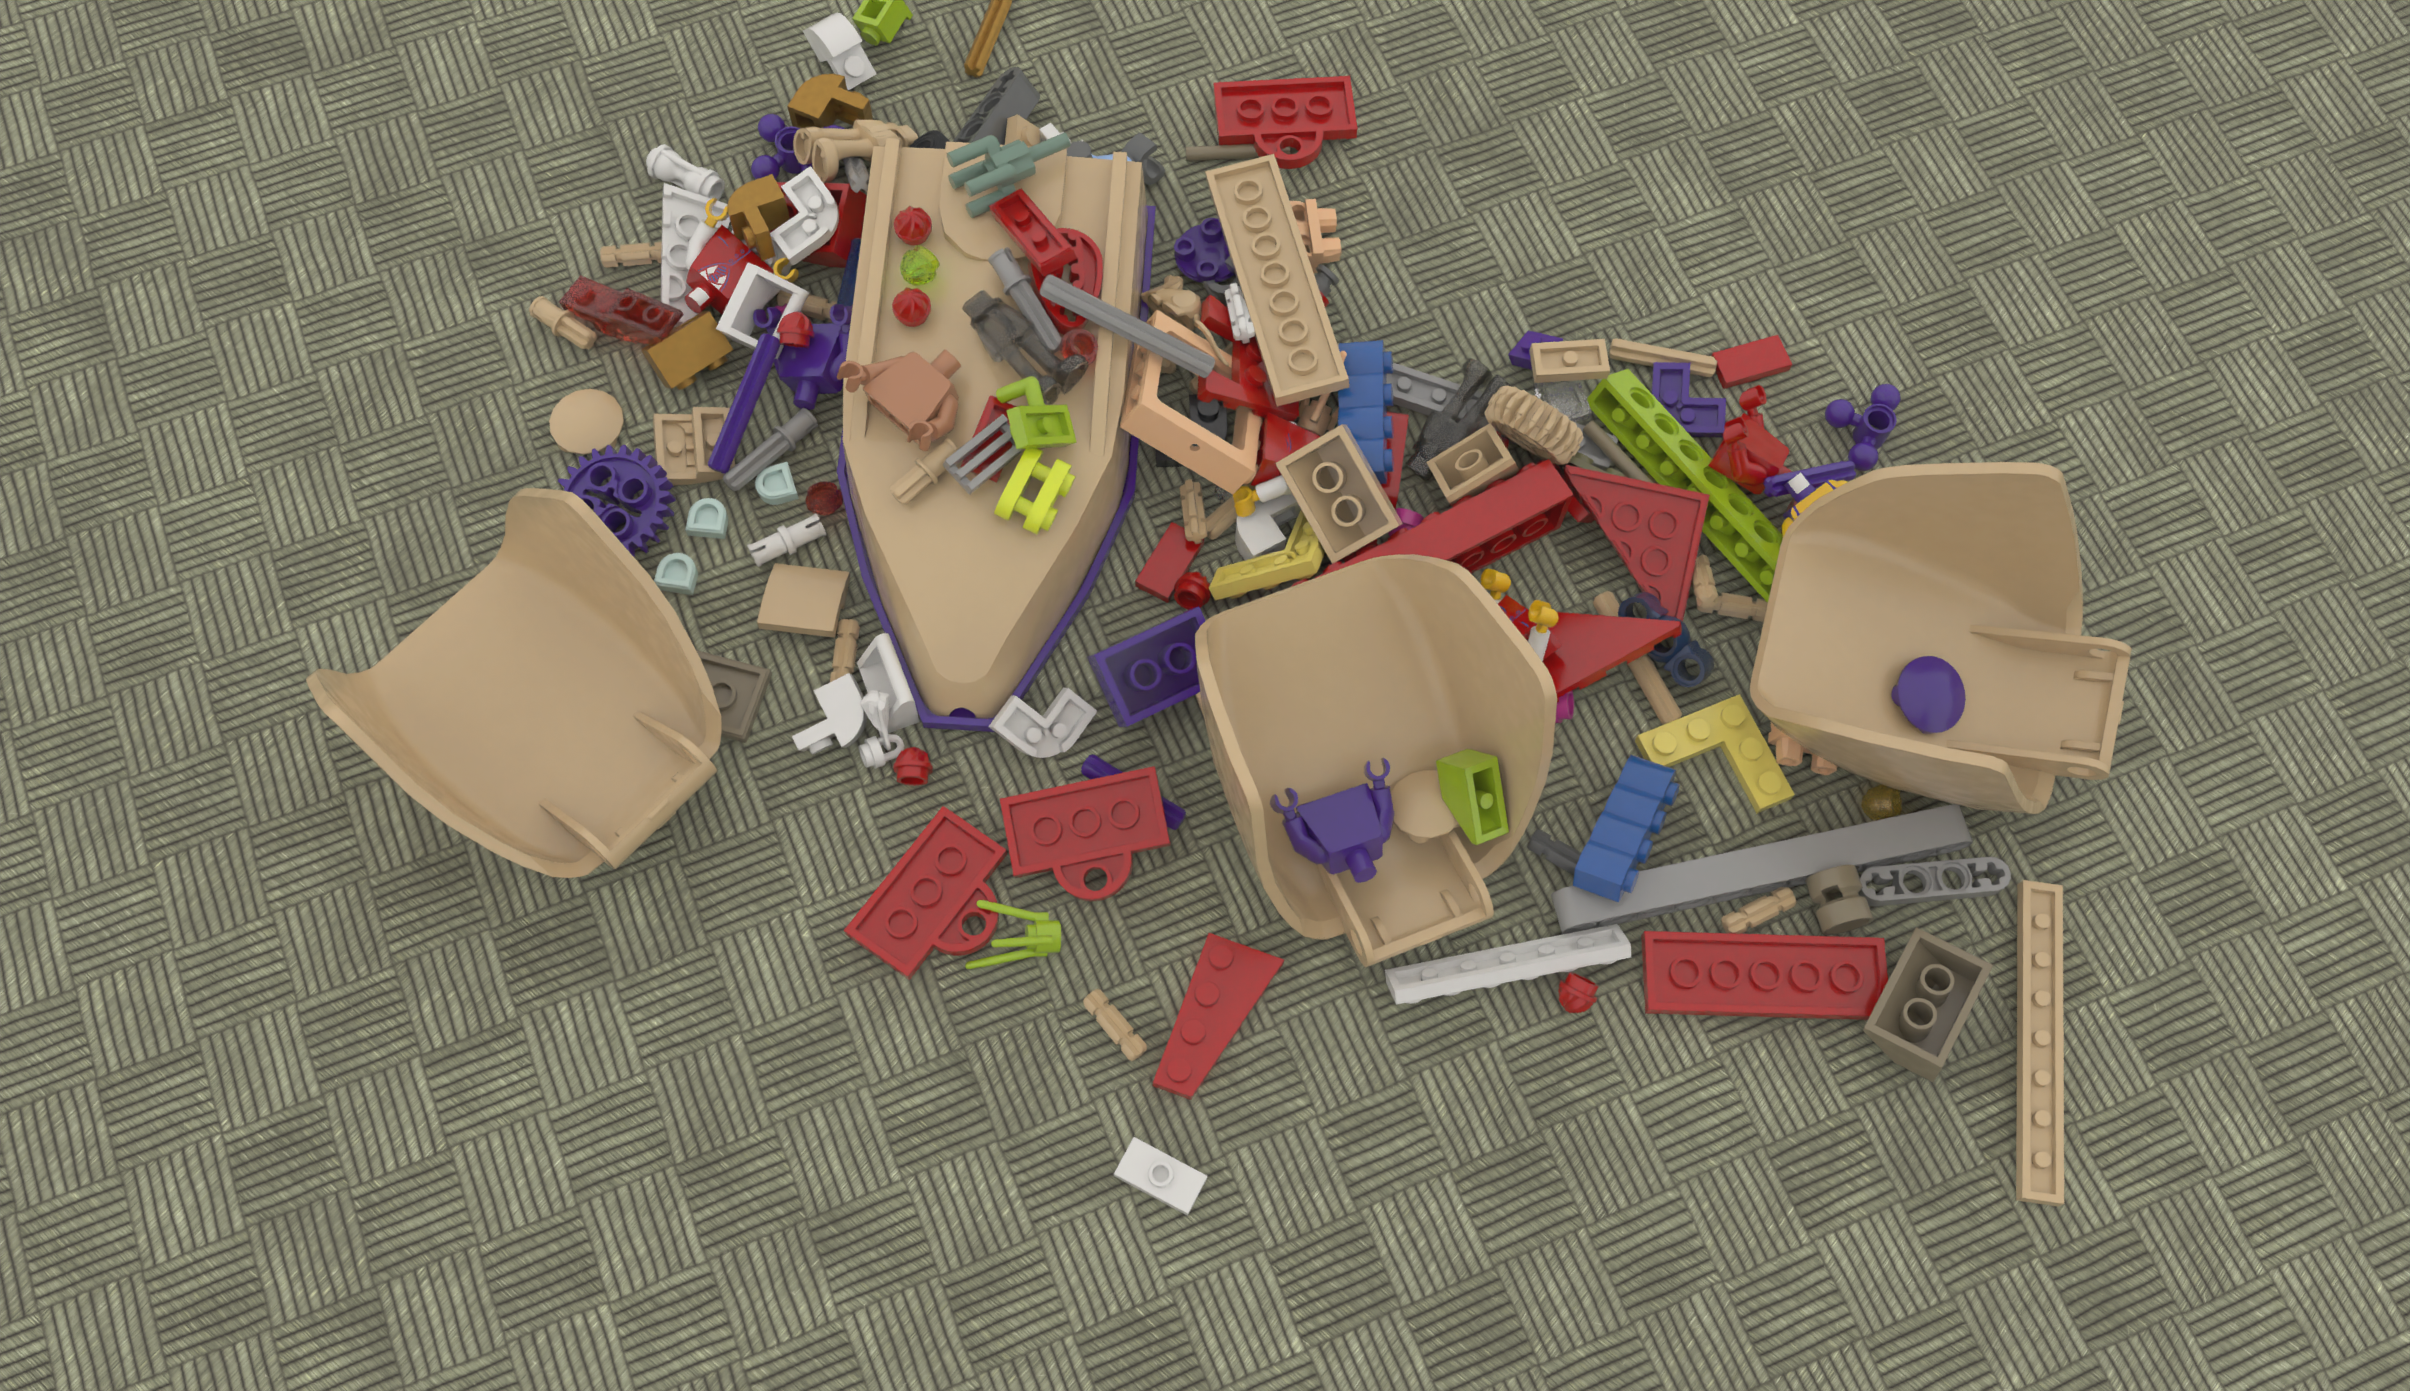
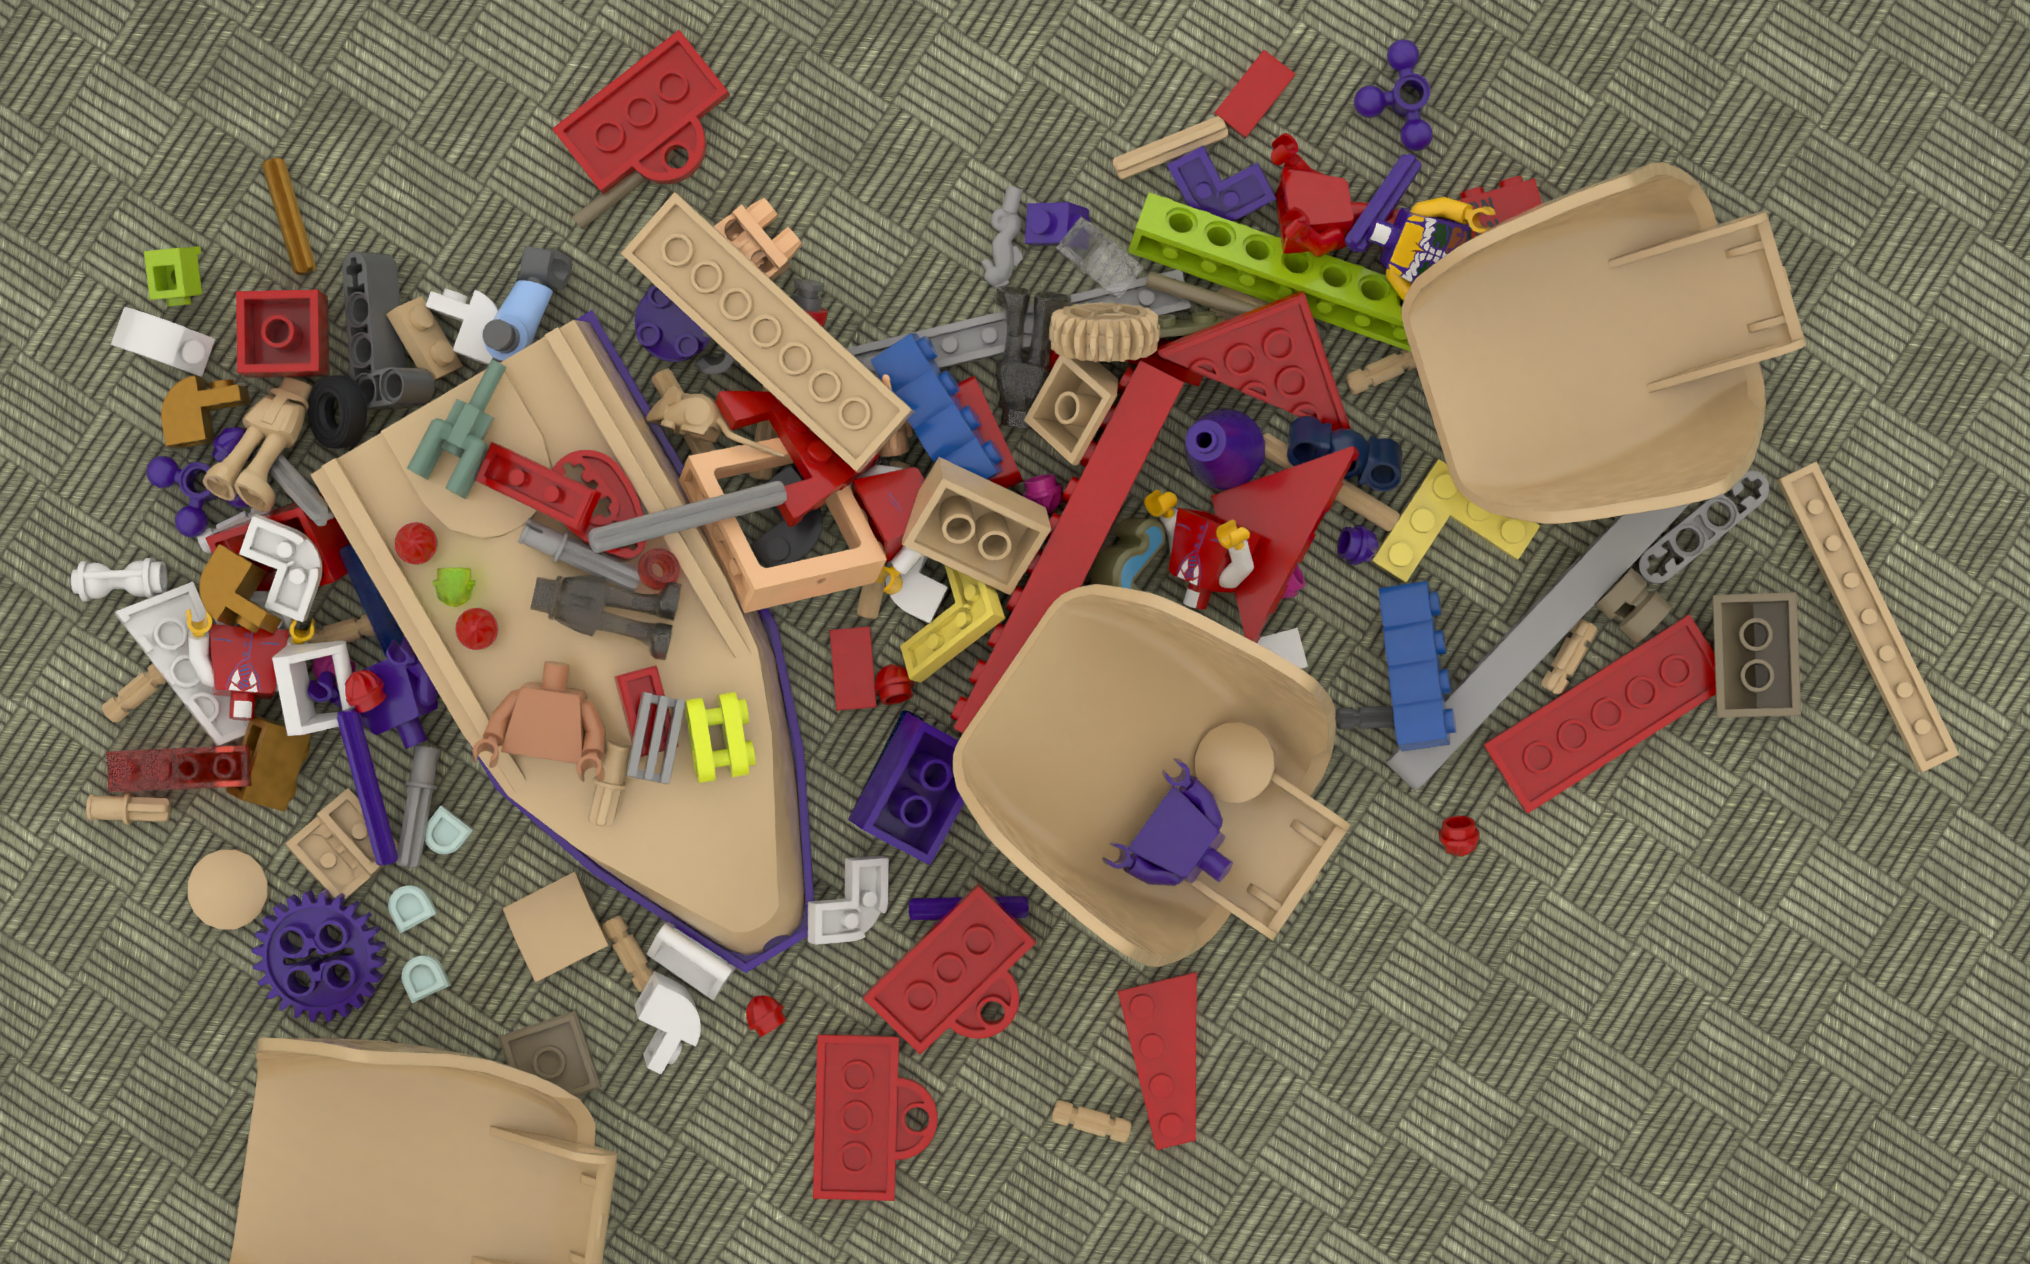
camera: 25 degrees left, 20 degrees up
(786, 540) = (497, 881): white pin -> none
(823, 498) = (493, 816): clear red plate -> none
(877, 709) = (702, 994): white piece -> none
(925, 89) = (282, 333): none -> red brick
(1037, 423) = (685, 679): lime plate -> none
(1039, 938) = (980, 1092): lime plant -> none
(1160, 1176) = (1213, 1219): white plate -> none
(1193, 511) = (848, 615): tan axle -> none
(1238, 314) = (759, 396): white axle -> none
(1474, 793) = (1272, 738): lime slope -> none
(1504, 337) = (1004, 253): none -> light grey animal
(1507, 964) = (1385, 850): white plate -> none
(1569, 360) = (1095, 236): tan plate -> none
(1569, 570) = (1224, 449): none -> dark purple cone
(1633, 716) = (1357, 545): none -> dark purple plate
(1704, 583) = (1346, 373): tan axle -> none
(1930, 694) = (1609, 361): dark purple dish -> none

